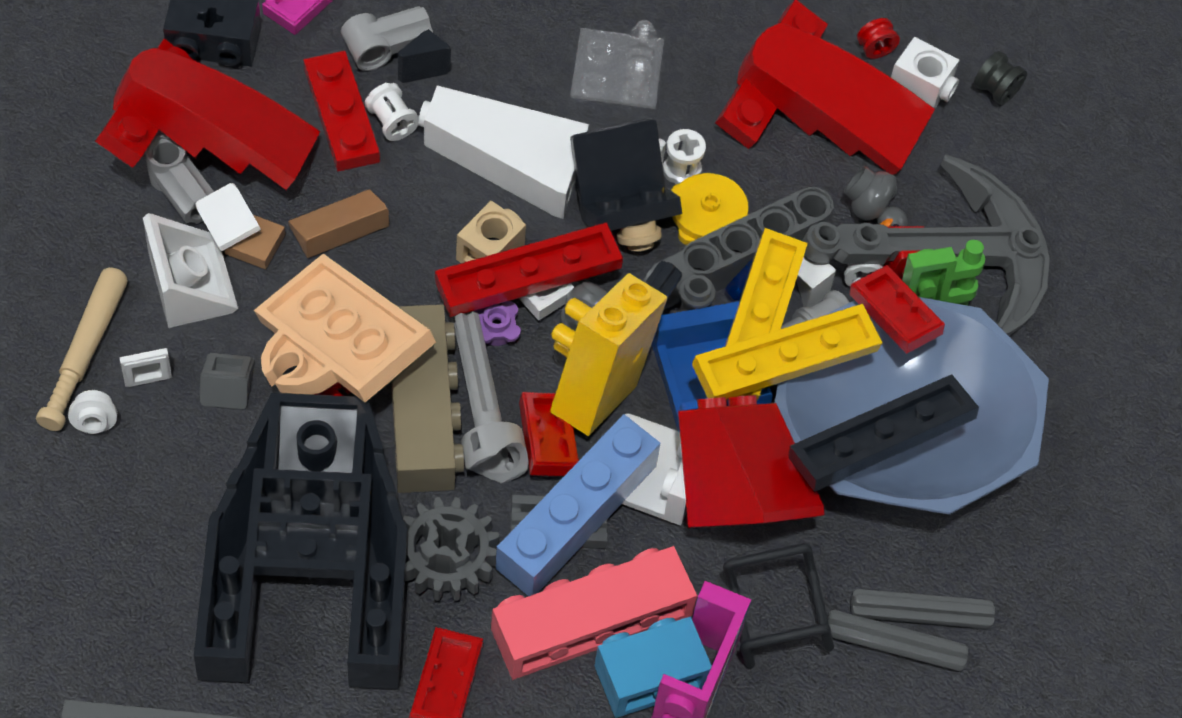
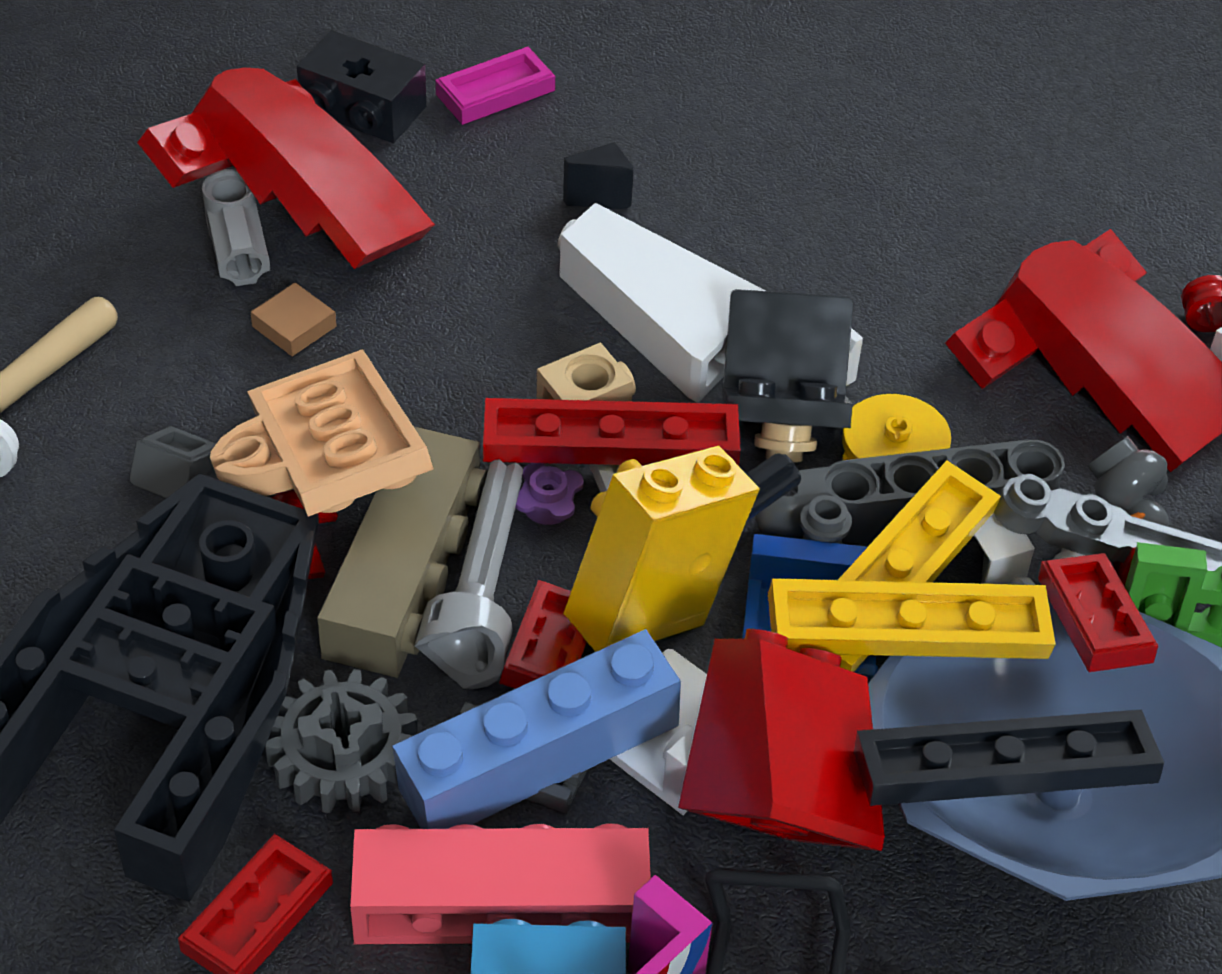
camera: 25 degrees right, 10 degrees down
(145, 367) = (81, 415): white slope -> none
(188, 272) = (187, 325): white slope -> none
(227, 216) = (266, 277): white slope -> none
(340, 223) = (409, 329): medium nougat slope -> none
(341, 111) = (473, 213): red plate -> none
(375, 40) = (545, 141): light grey piece -> none
(392, 111) = (521, 239): white bush -> none
(618, 66) = (847, 250): clear hinge -> none
(691, 153) = (899, 359): white bush -> none

